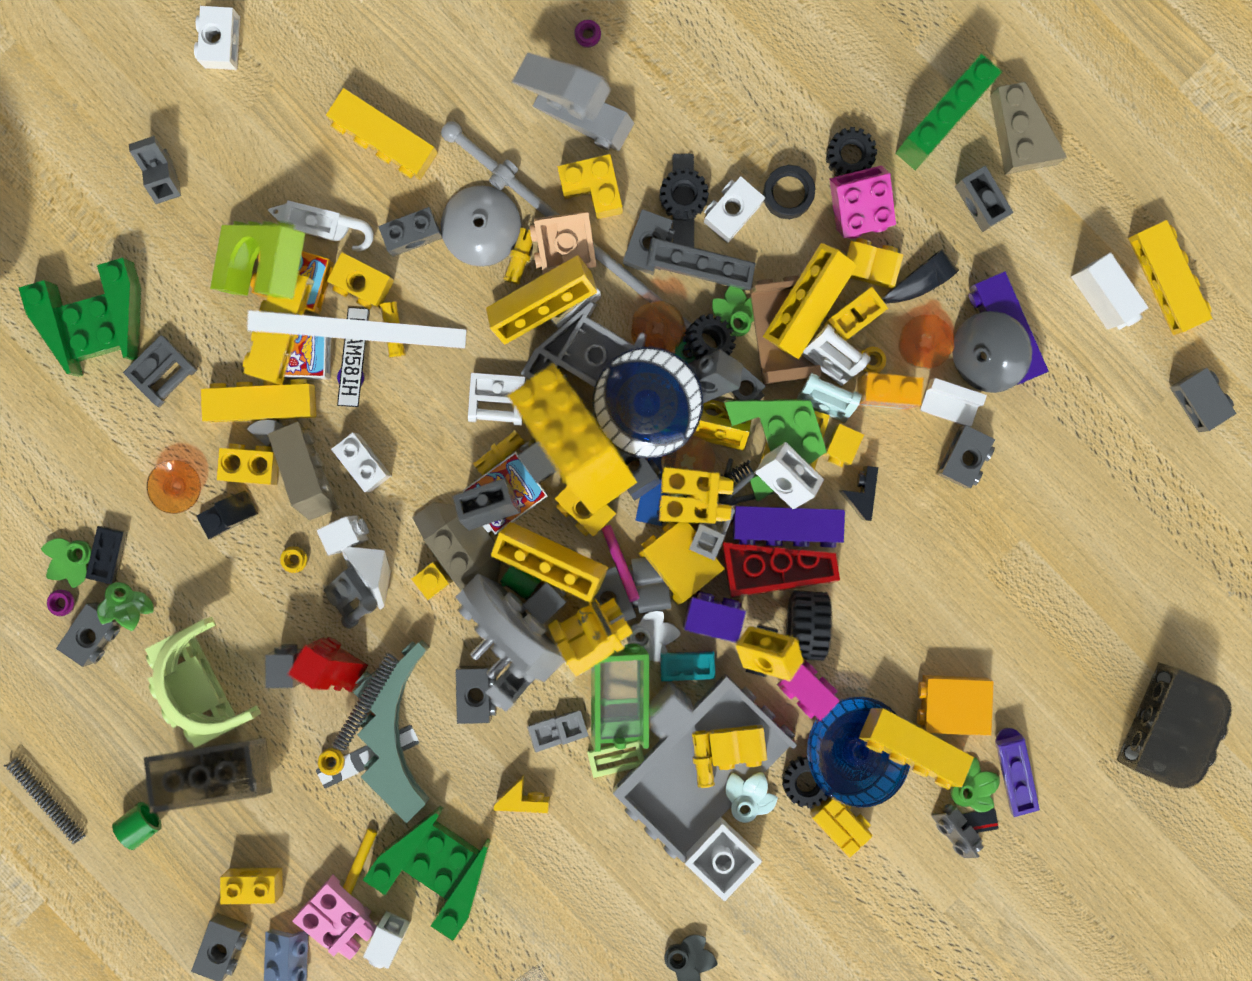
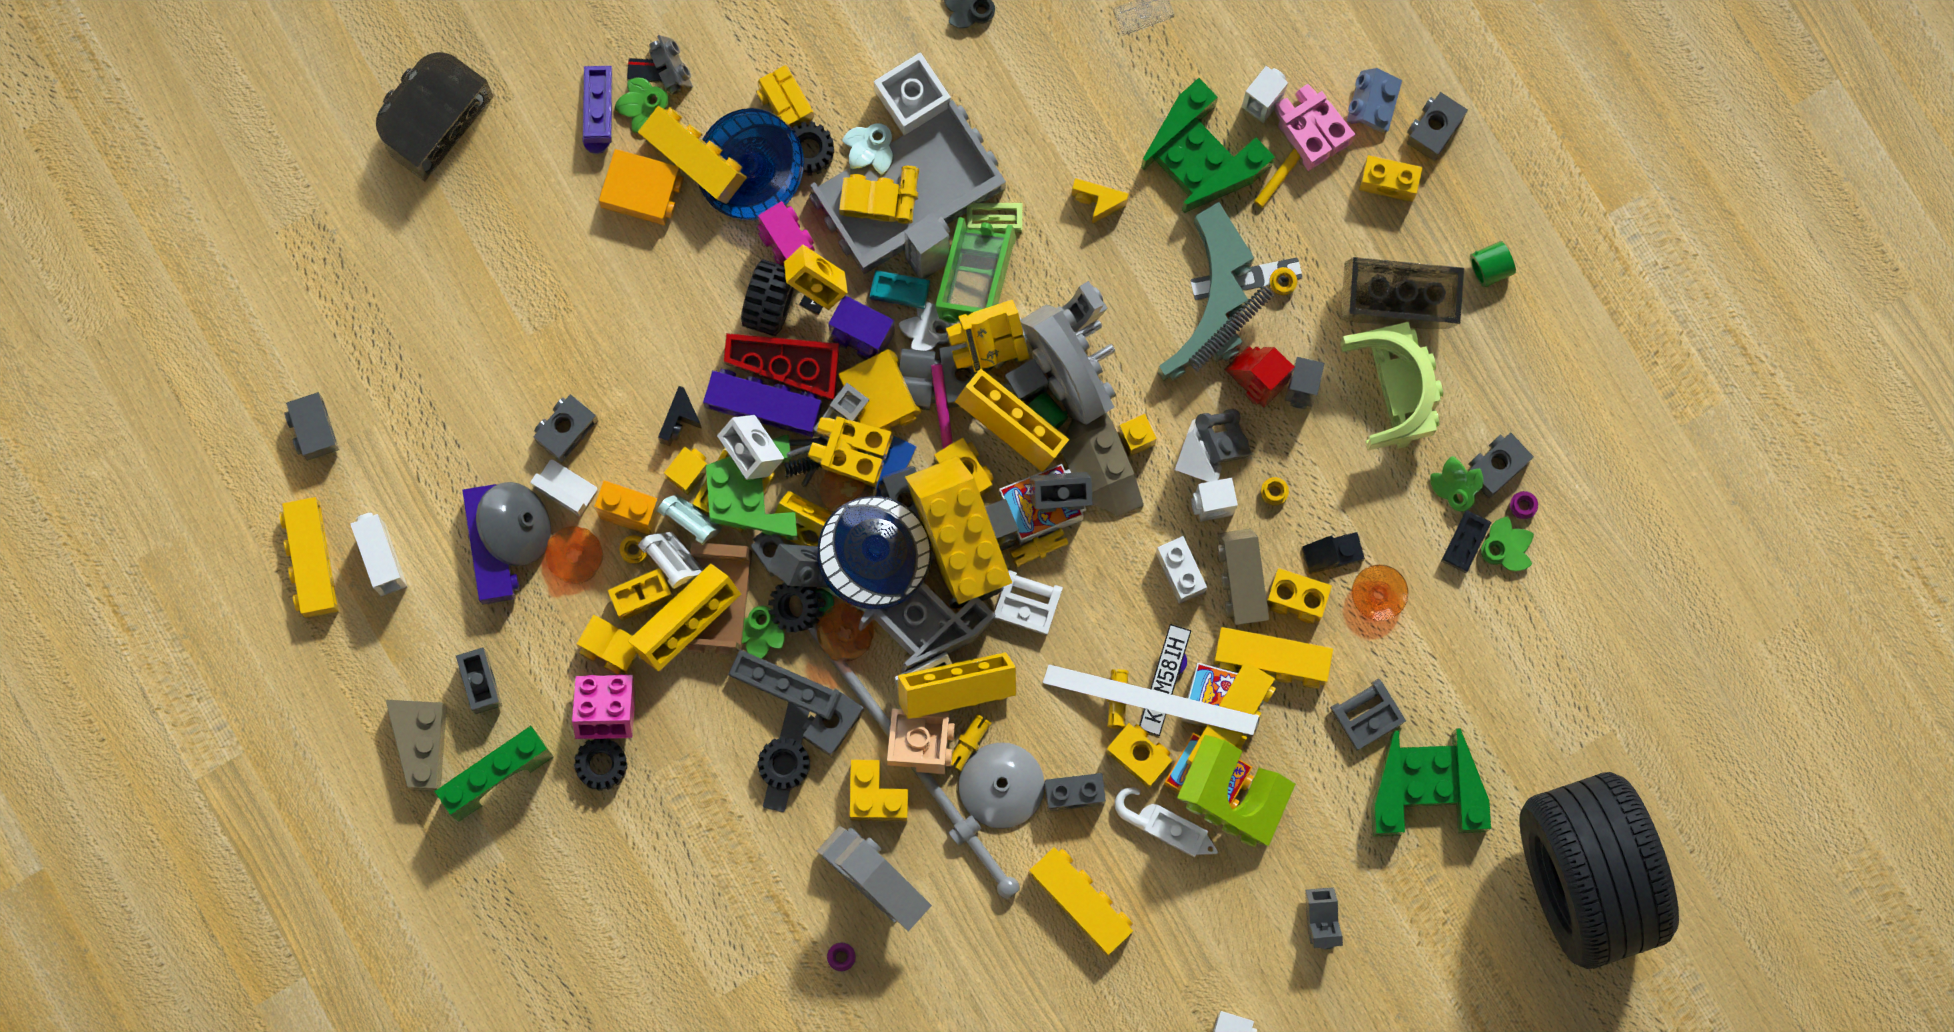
camera: 175 degrees left, 10 degrees down
(73, 836) = (1598, 346): dark grey piece -> none
(263, 428) = (1273, 627): light grey tile -> none
(470, 710) = (1130, 298): dark grey brick -> none
(557, 730) = (1047, 257): light grey slope -> none
(727, 224) = (719, 736): white brick -> none
(791, 171) = (659, 725): black tyre -> none
(922, 280) = (555, 620): black piece -> none

